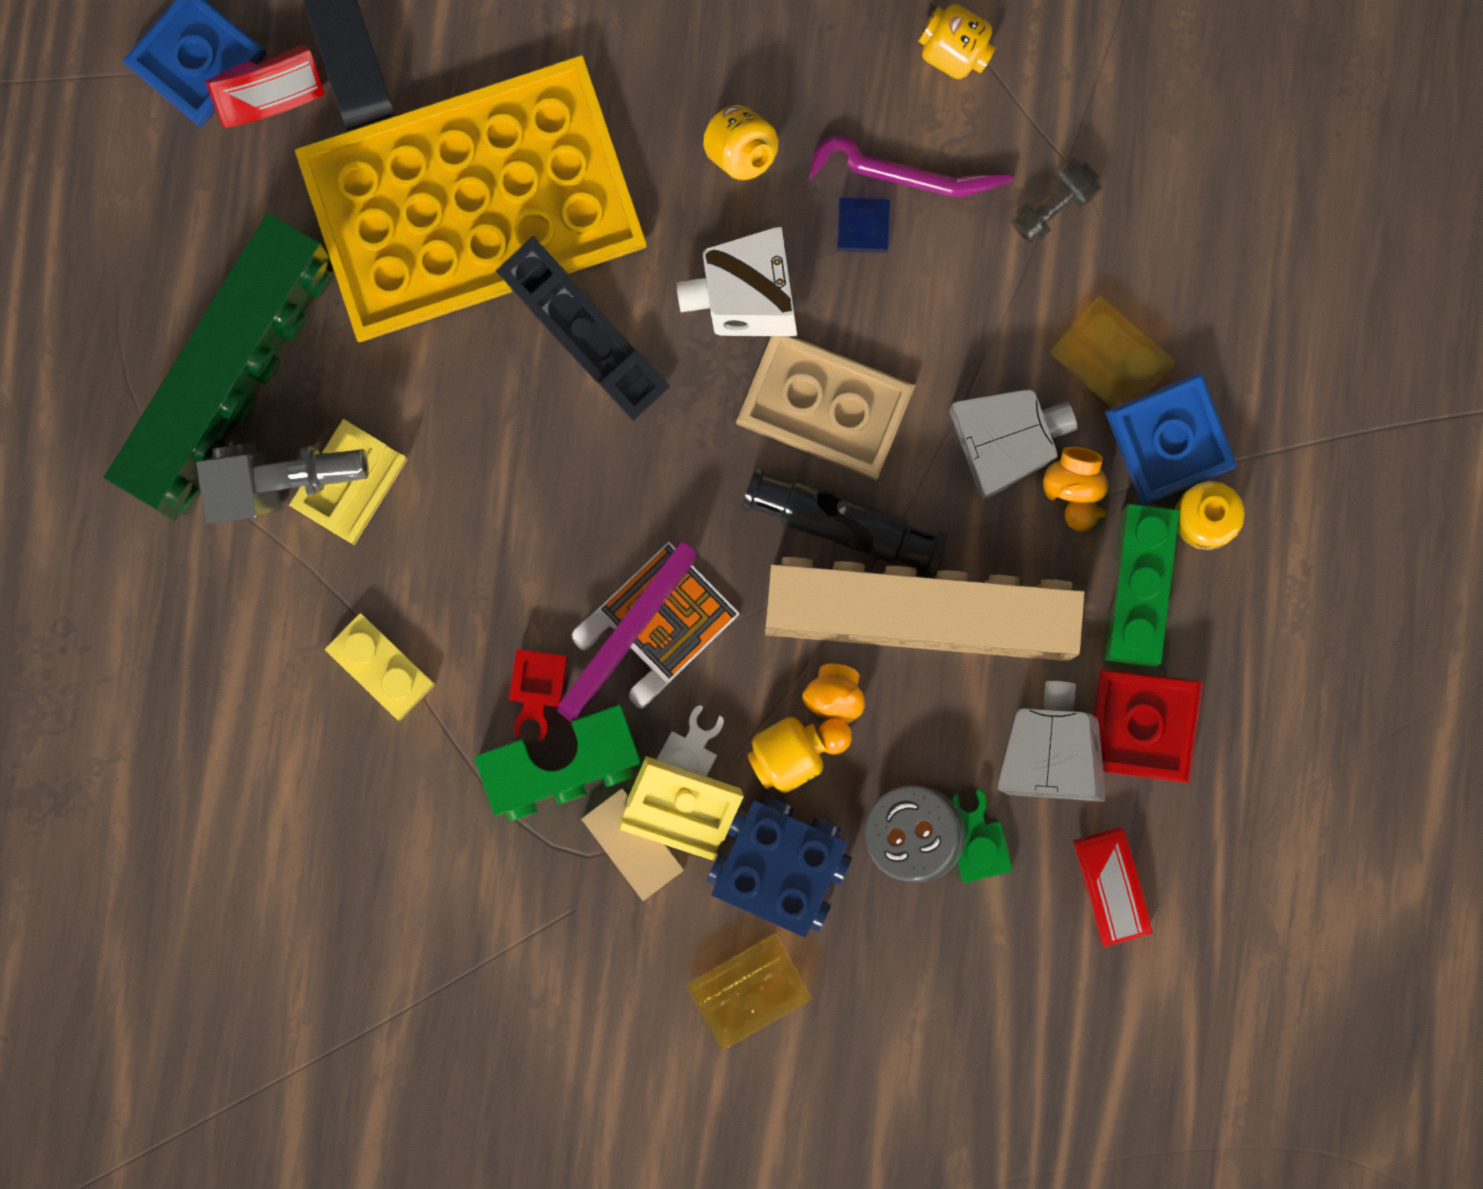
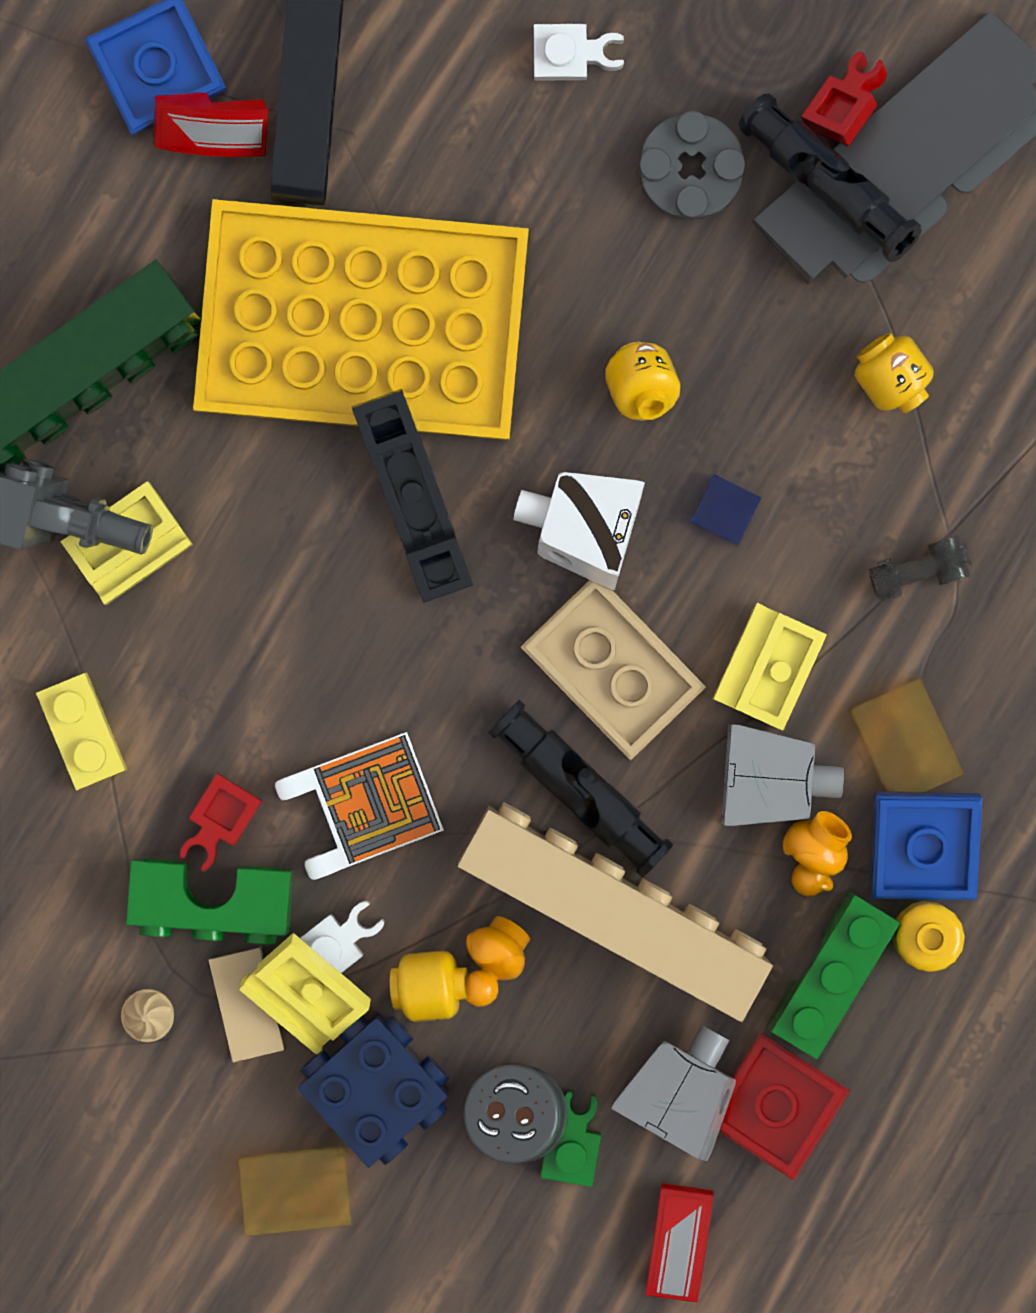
camera: 25 degrees right, 5 degrees up
(548, 893) = (147, 1015): none -> tan plate
(627, 632) = (328, 806): magenta tile -> none
(902, 173) = (784, 475): magenta piece -> none
(963, 342) = (769, 666): none -> light yellow plate

